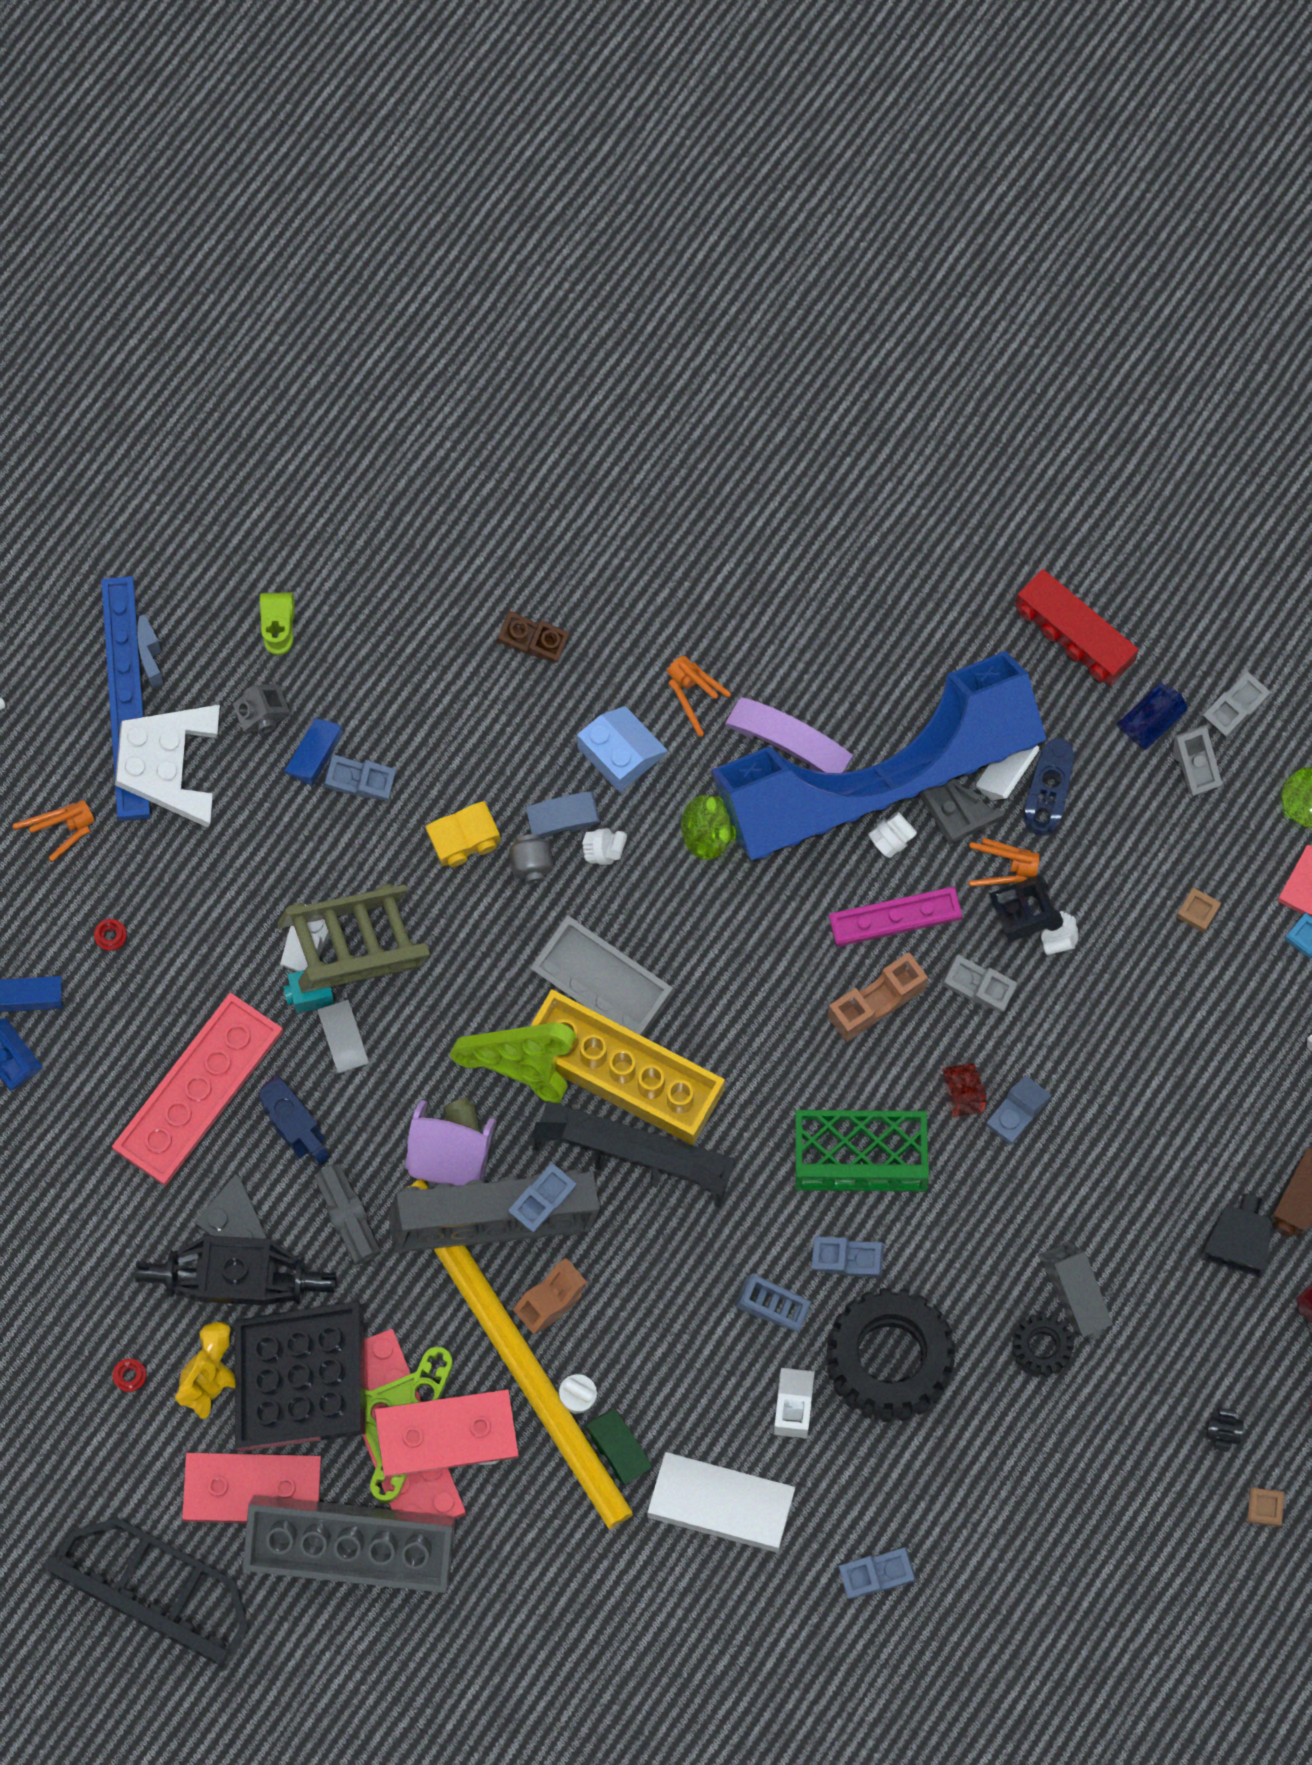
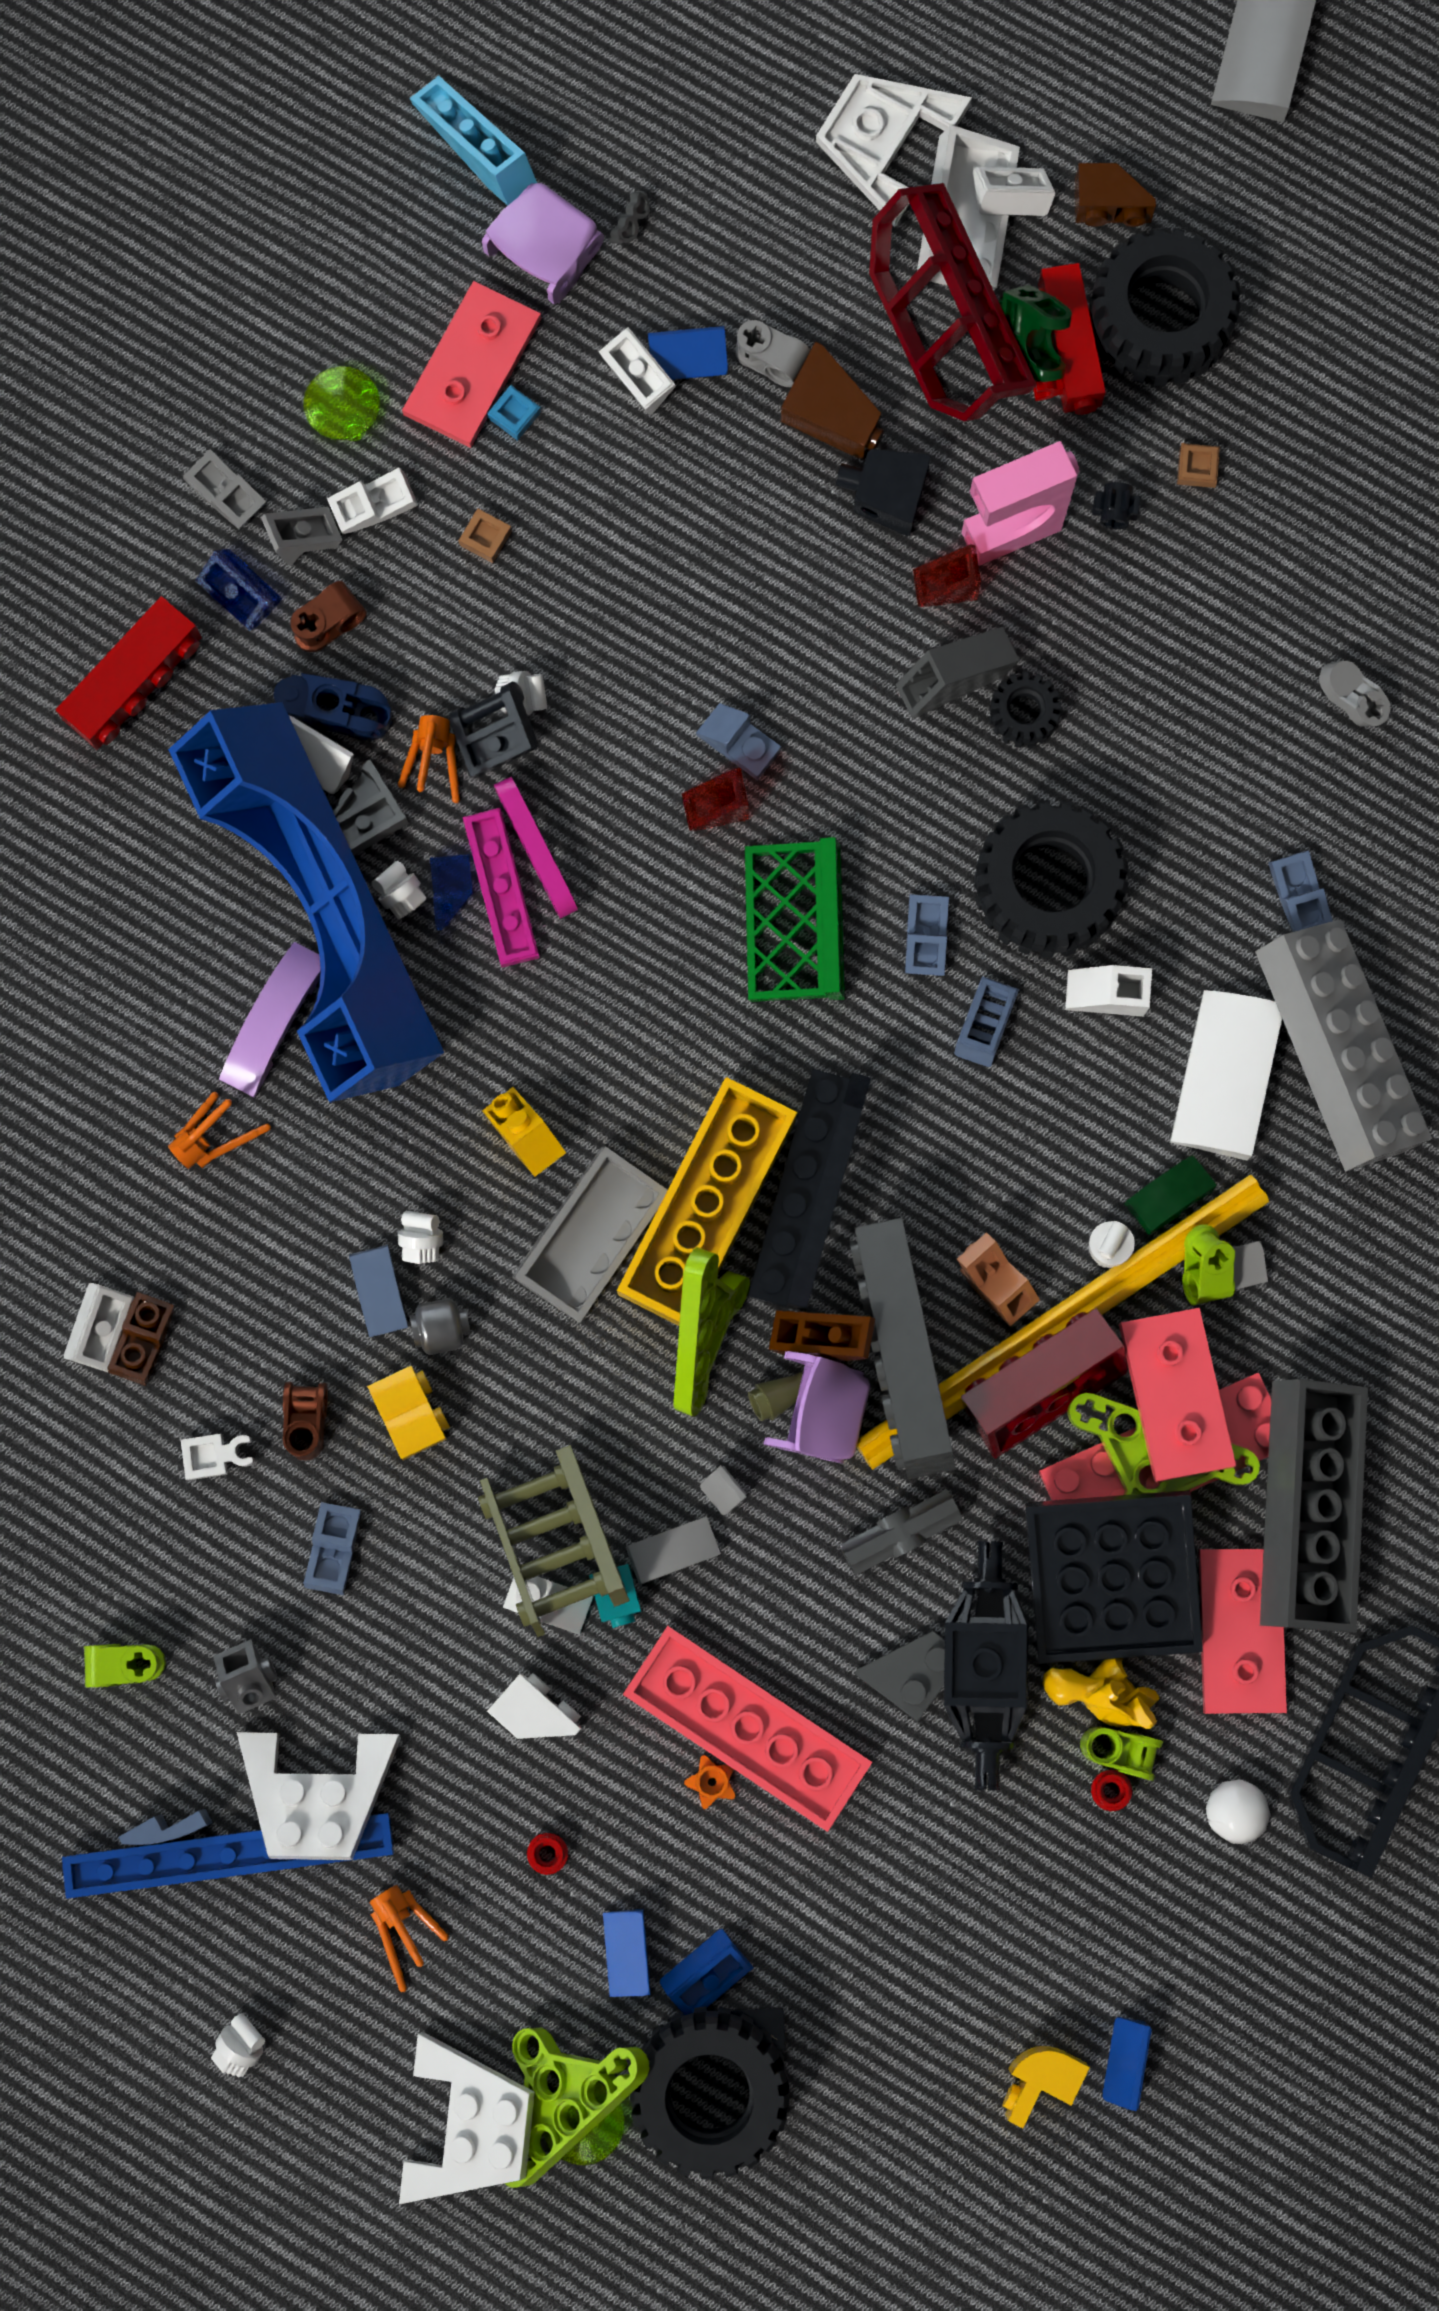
camera: 90 degrees left, 10 degrees up
(105, 1477) = (1238, 1811): none -> white hair
(157, 1054) = (708, 1793): none -> orange plate
(159, 1385) = (1128, 1751): none -> lime piece
(221, 922) = (530, 1713): none -> white slope
(292, 1121) = (785, 1607): dark blue piece -> none
(314, 751) = (296, 1608): blue slope -> none
(390, 1078) = (723, 1490): none -> light grey slope
(436, 686) = (209, 1456): none -> white plate
(460, 1324) = (1042, 1383): none -> dark red slope
(463, 758) = (304, 1416): none -> copper piece
(507, 1144) = (822, 1335): none -> reddish brown slope
(542, 1198) = (898, 1284): sand blue slope -> none
(543, 604) = (98, 1326): none -> white slope
(555, 1470) = (1207, 1266): none -> lime piece
(556, 1506) = (1249, 1265): none -> light grey slope
(620, 747) = (288, 1222): light blue slope -> none
(688, 927) = (524, 1131): none -> yellow slope
(706, 827) = (395, 1111): clear neon green dish -> none
(740, 1592) = (1343, 1044): none -> light grey brick
(864, 1008) = (608, 902): nougat arch -> none
(896, 878) = (451, 886): none -> clear blue slope
(929, 940) = (535, 847): none -> dark pink beam
(978, 984) = (584, 787): light grey slope -> none
(1068, 1618) = (1354, 693): none -> light grey piece
(1129, 784) = (329, 613): none -> copper piece
(1159, 1287) = (948, 578): none -> clear red slope
(1213, 1331) = (1021, 502): none -> bright pink arch
(1227, 820) = (372, 503): none -> white slope

